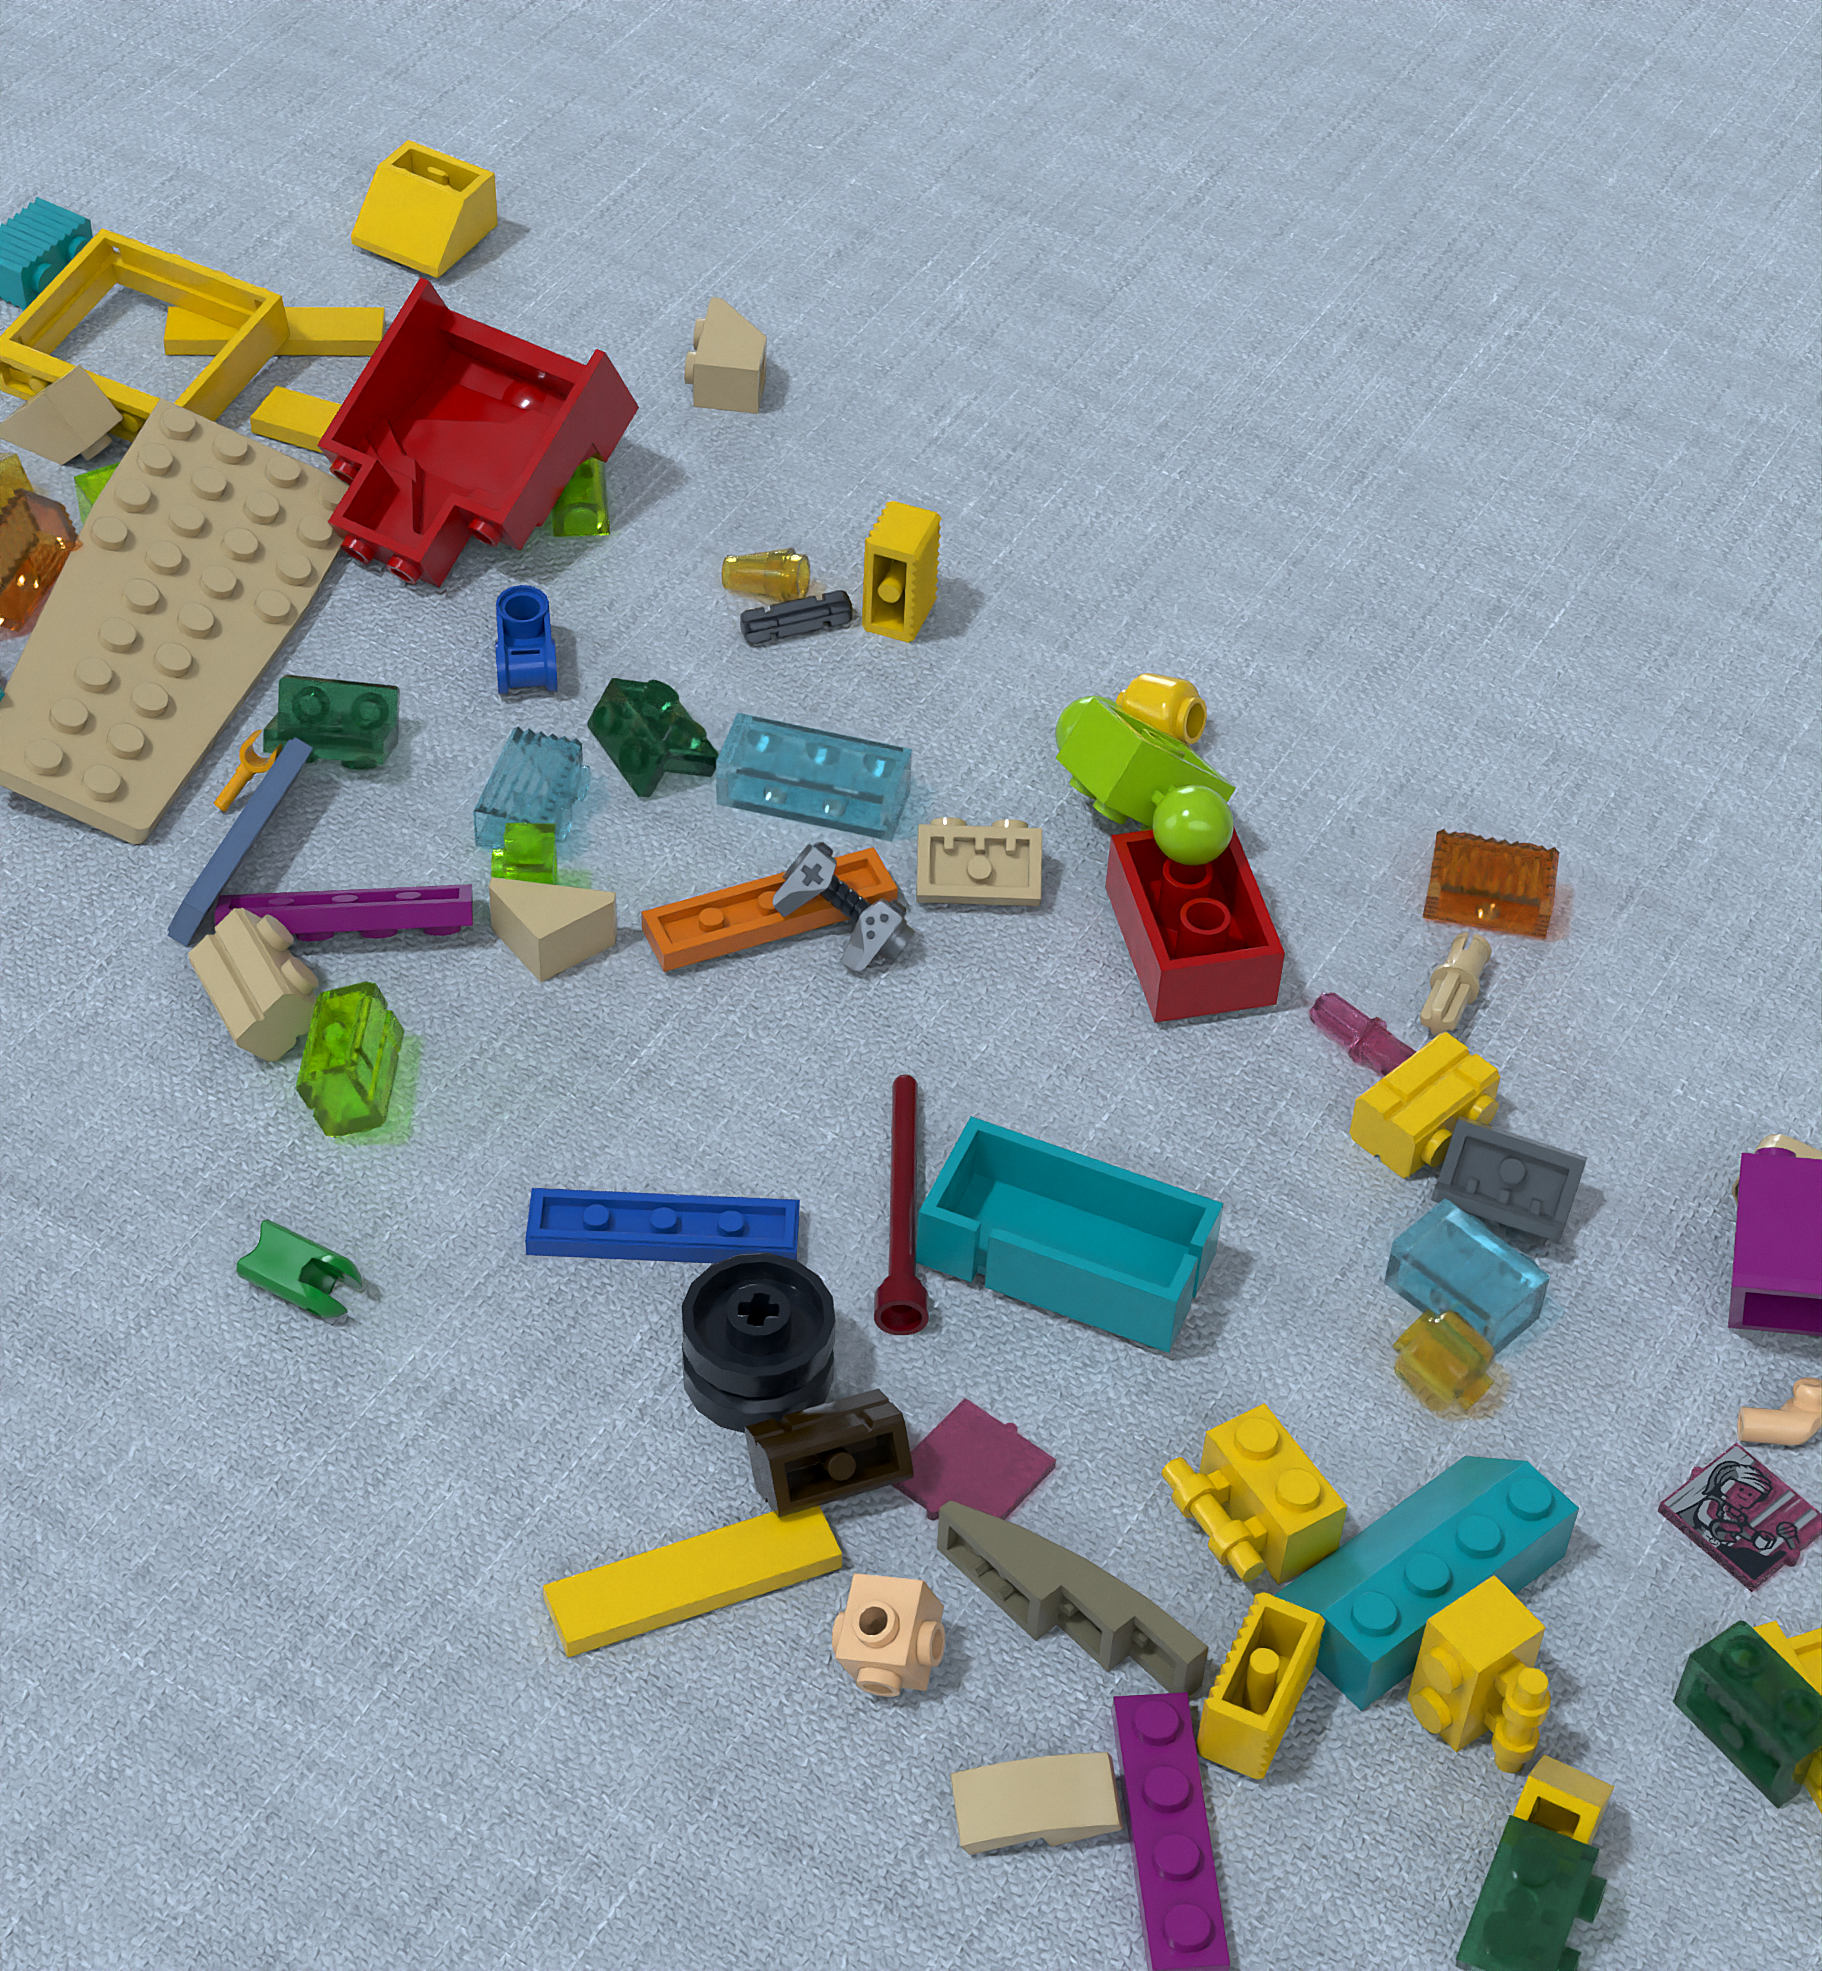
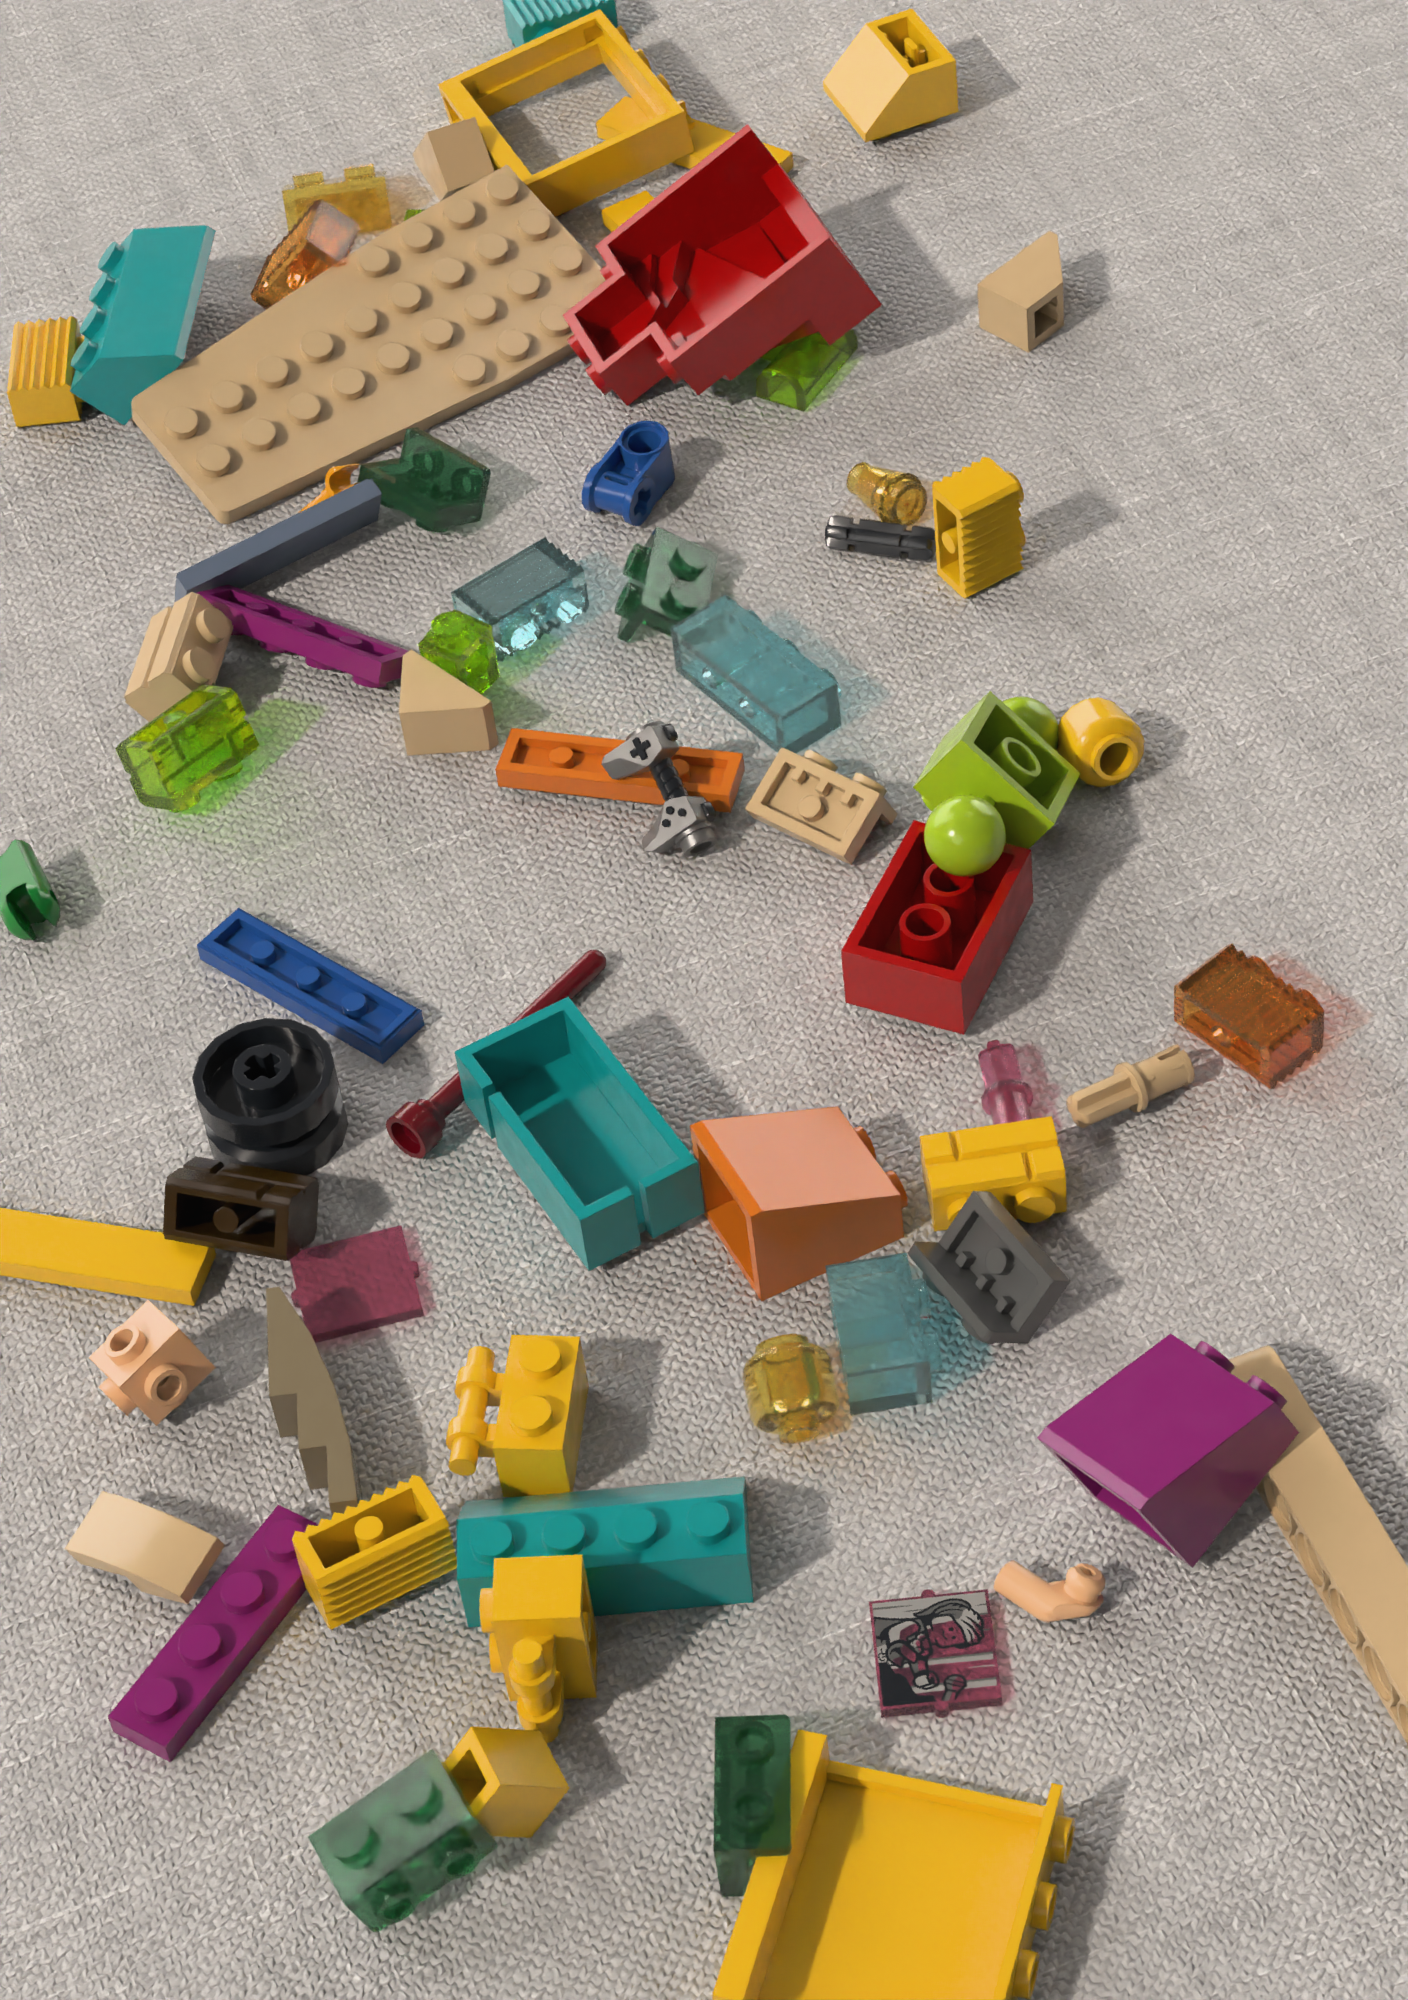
camera: 45 degrees right, 0 degrees up
(1296, 1202) = (795, 1193): none -> orange slope

